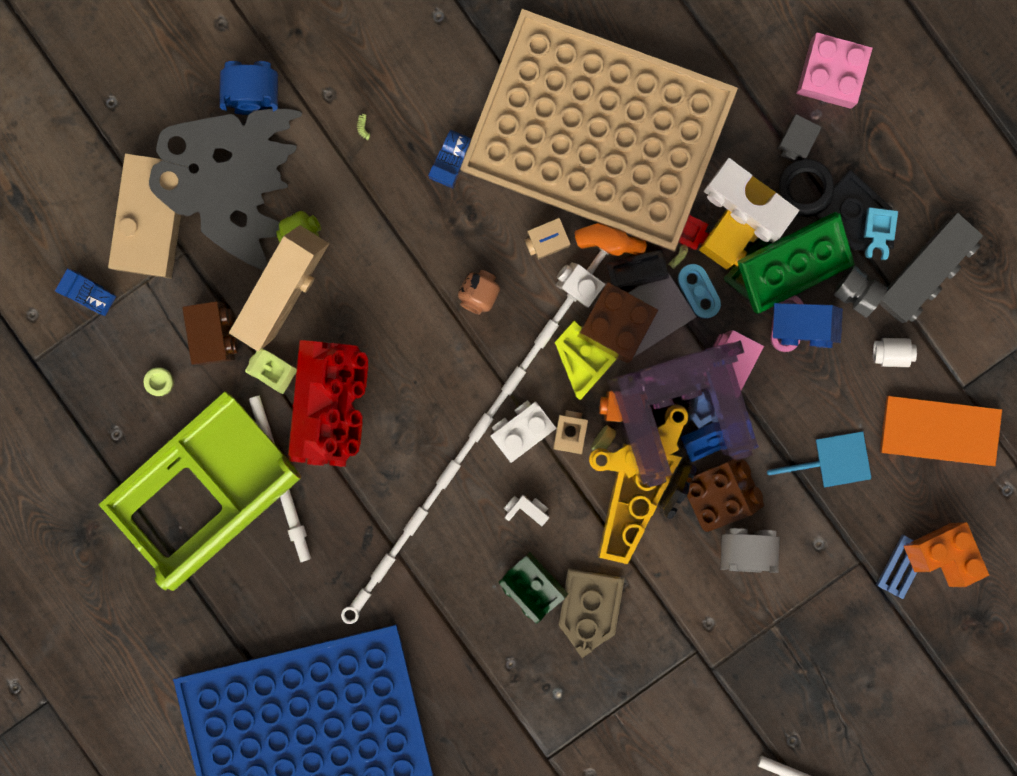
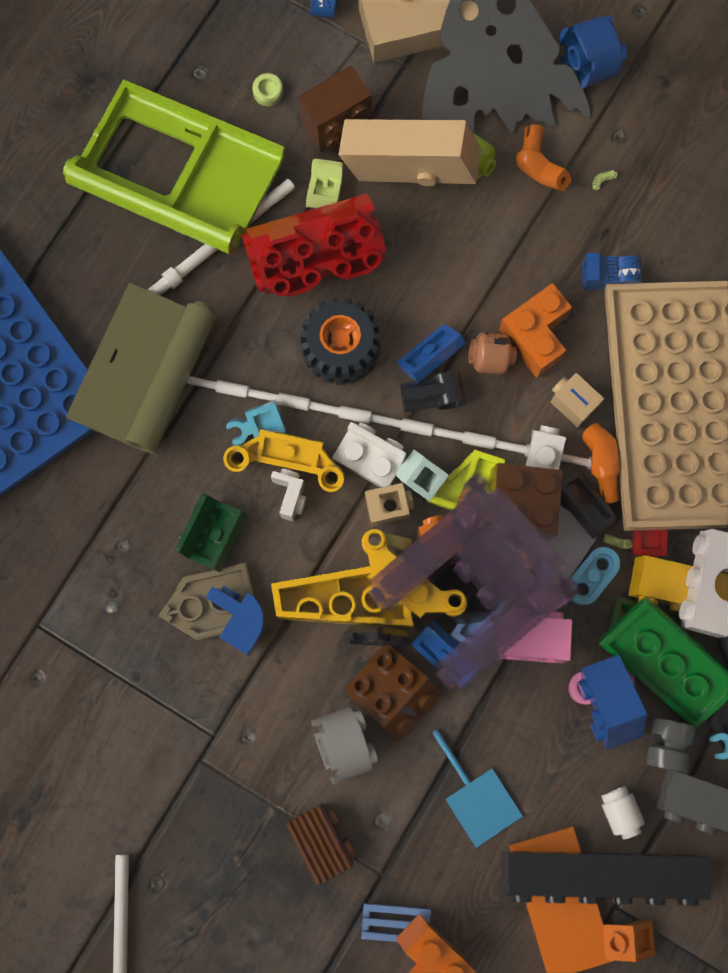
camera: 70 degrees right, 10 degrees down
(327, 181) = (536, 166): none -> orange arm
(368, 589) = (138, 387): none -> olive door
(415, 414) = (340, 341): none -> black wheel
(455, 508) = (260, 417): none -> medium azure plate
(456, 342) = (431, 353): none -> blue plate
(473, 252) = (531, 328): none -> orange brick
(492, 349) = (442, 392): none -> black piece
(493, 496) = (287, 452): none -> yellow plate
(558, 396) = (421, 475): none -> light aqua brick
(618, 587) = (247, 622): none -> blue brick
(817, 600) = (320, 843): none -> reddish brown brick
(937, 388) = (605, 876): none -> black brick
(993, 391) = (629, 941): none -> orange bracket

